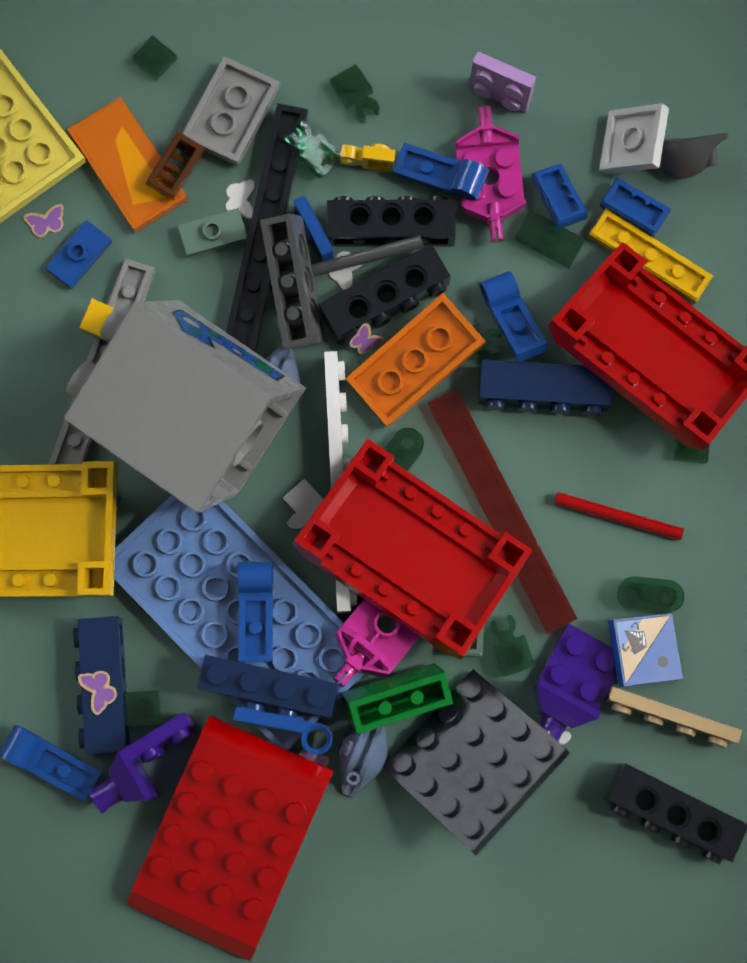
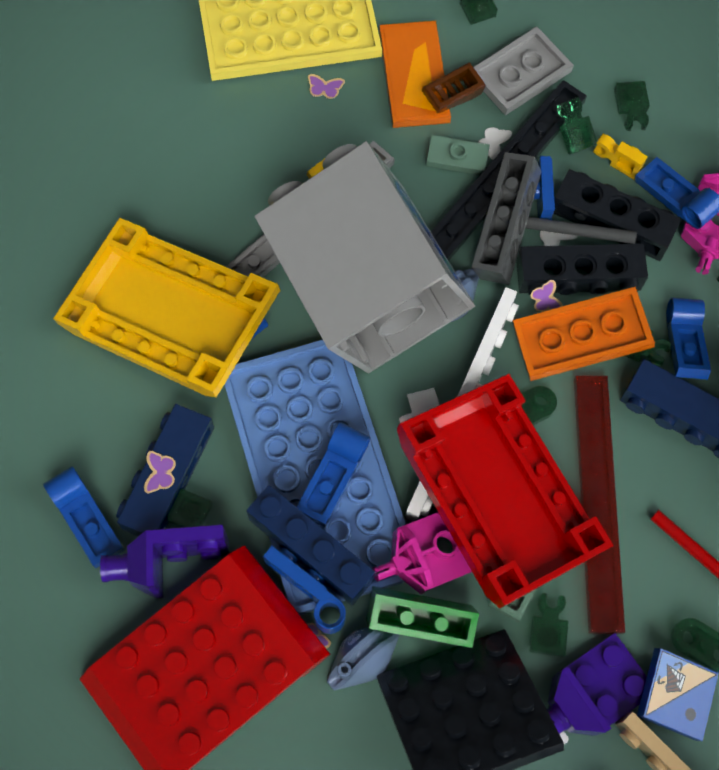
camera: 25 degrees right, 10 degrees down
(79, 254) = (337, 122): blue plate -> none

